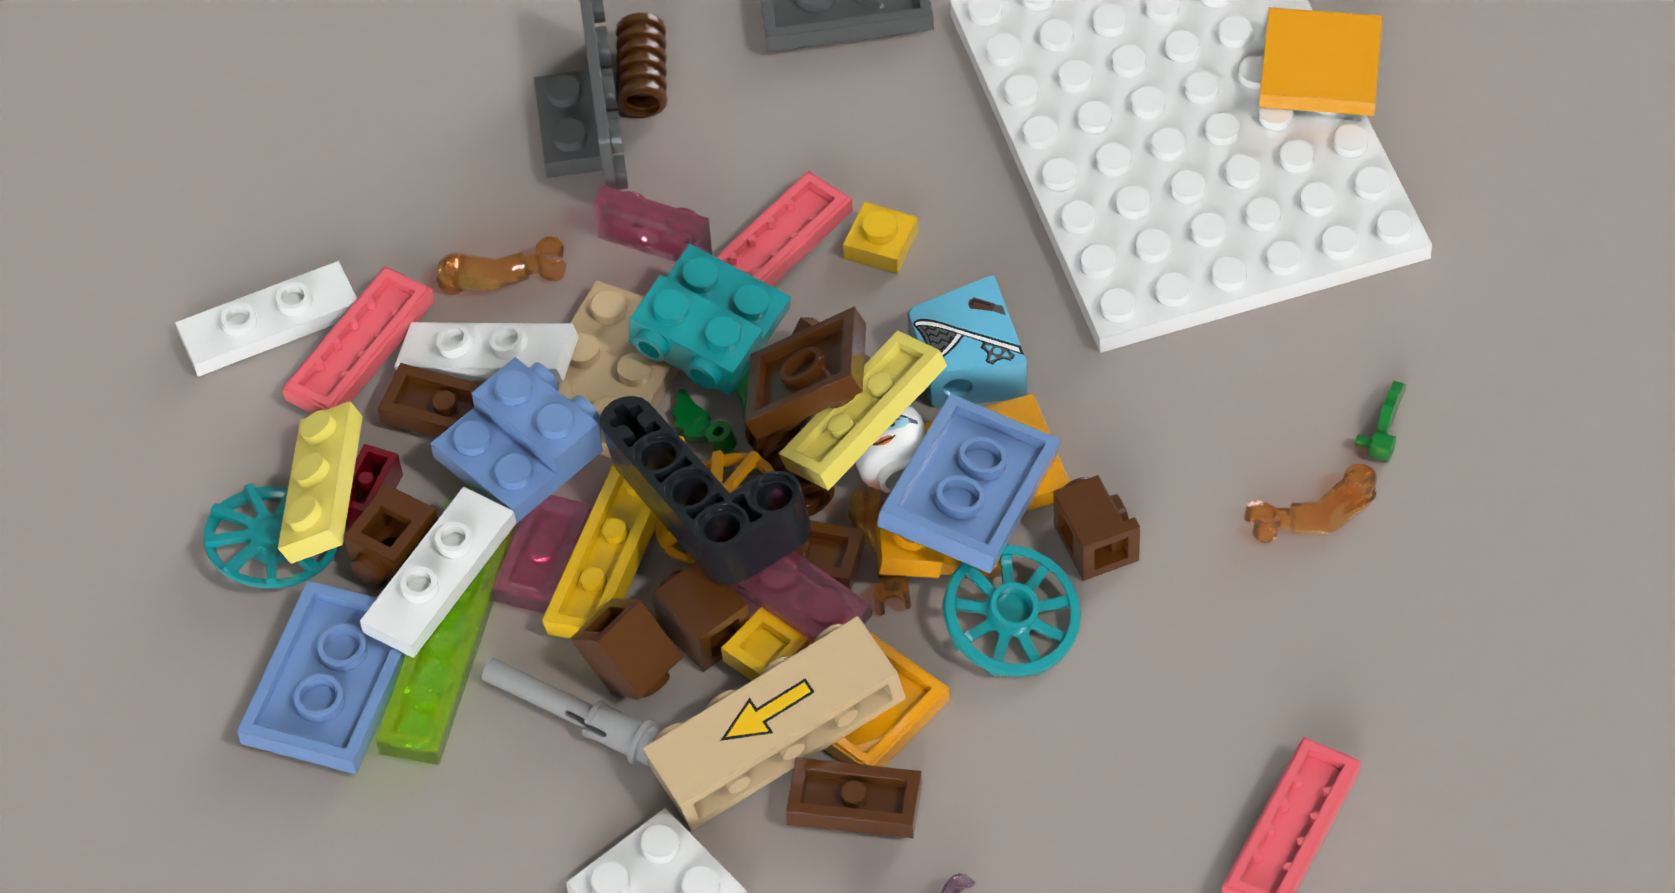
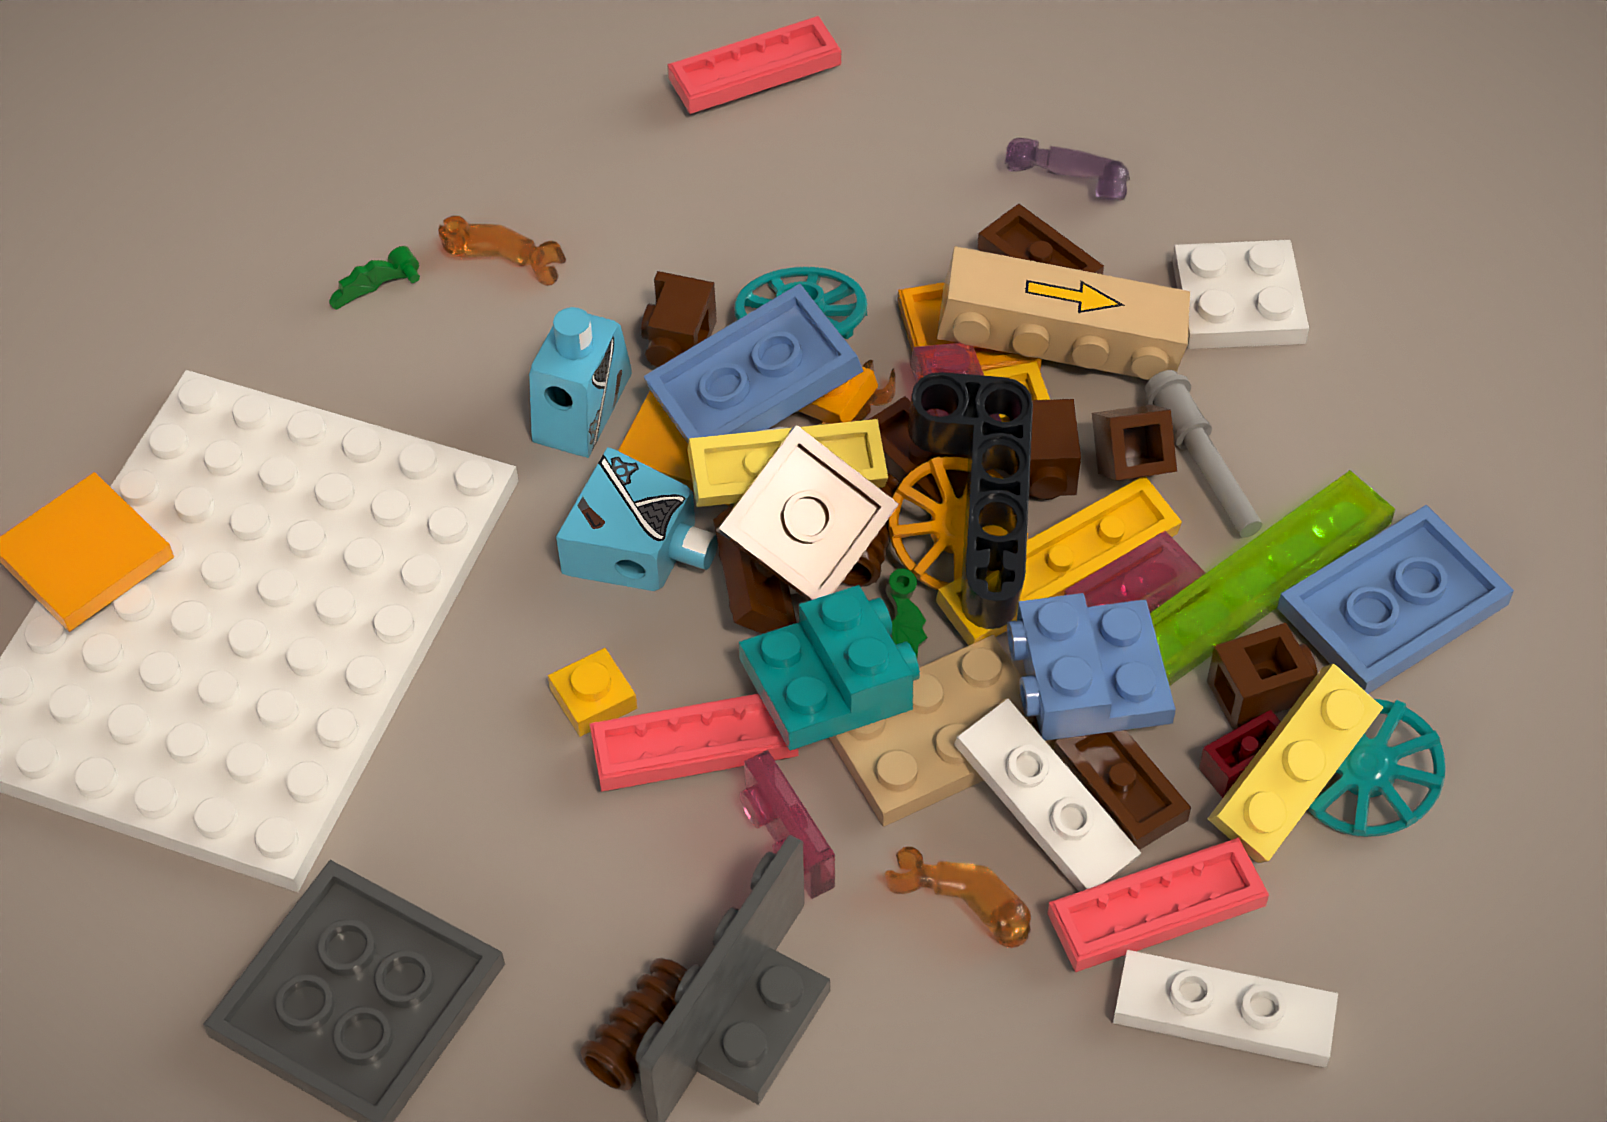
camera: 145 degrees left, 0 degrees up
(438, 572) = (1247, 599): white plate -> none
(1103, 398) = (581, 360): none -> medium azure torso

